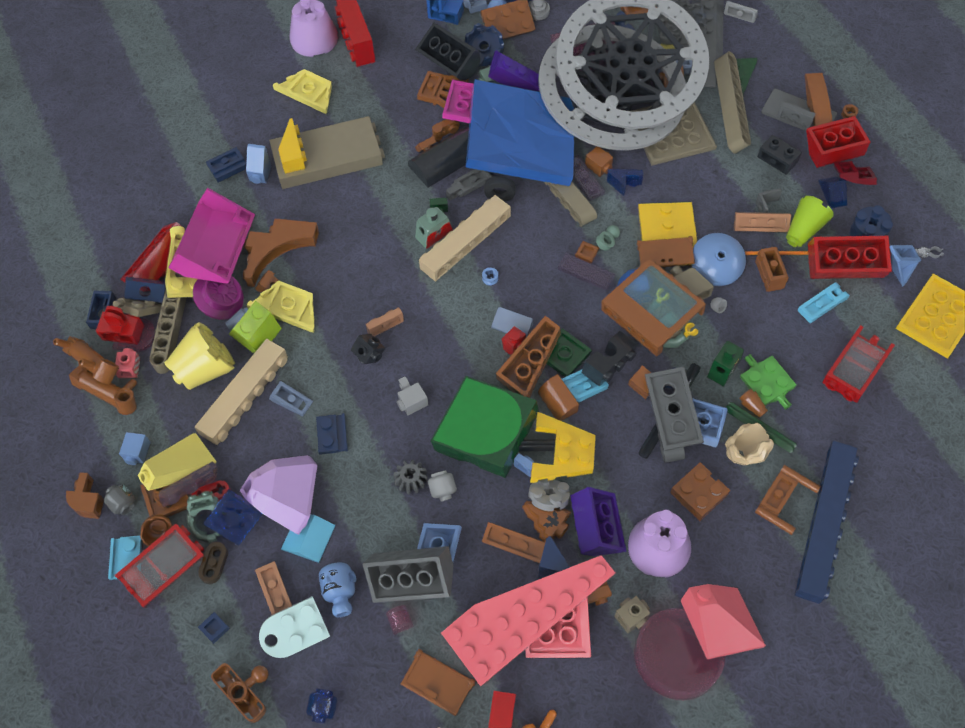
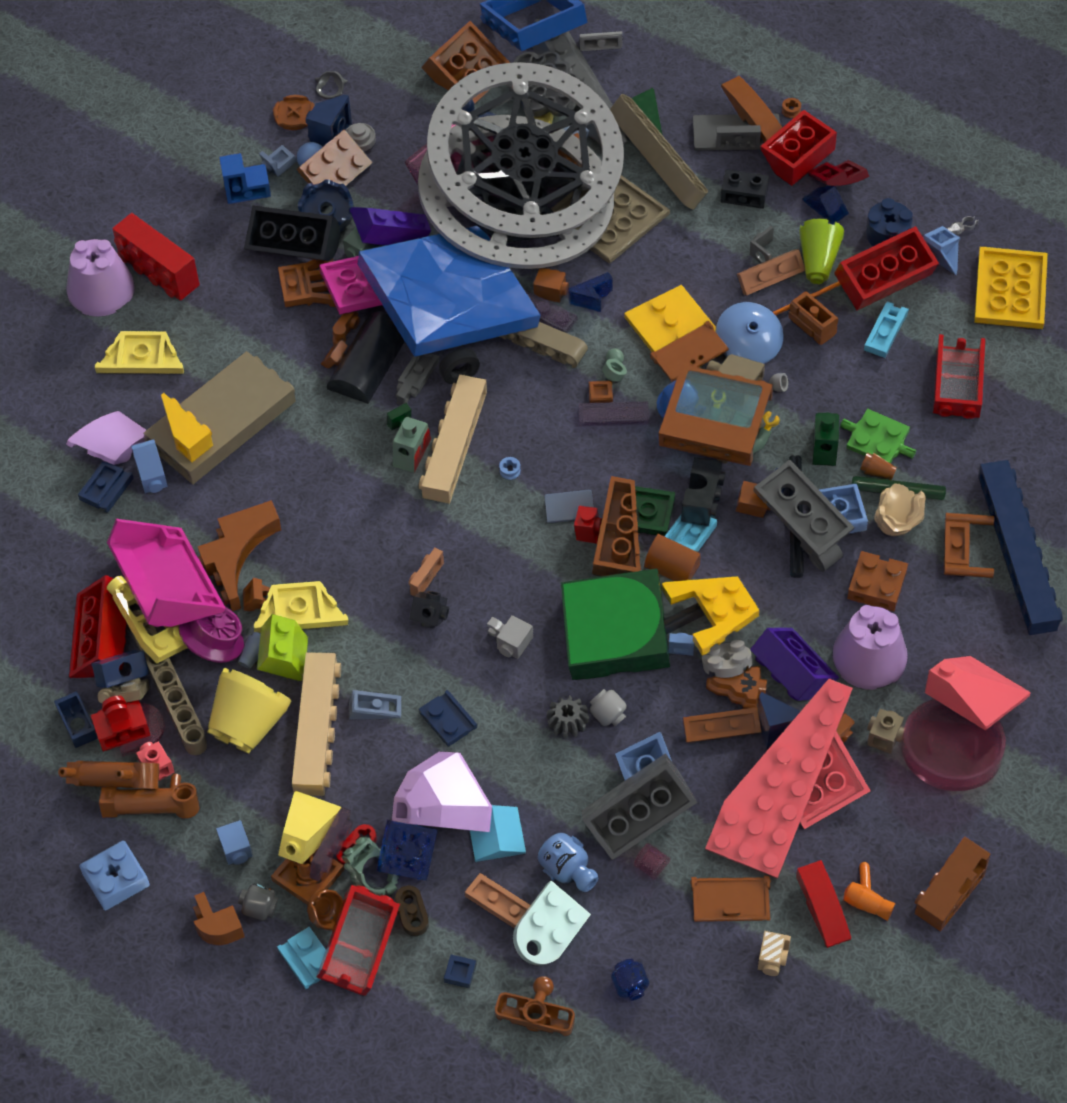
camera: 30 degrees left, 5 degrees down
(56, 437) = (111, 889): none -> medium blue brick
(248, 131) = (109, 437): none -> lavender slope

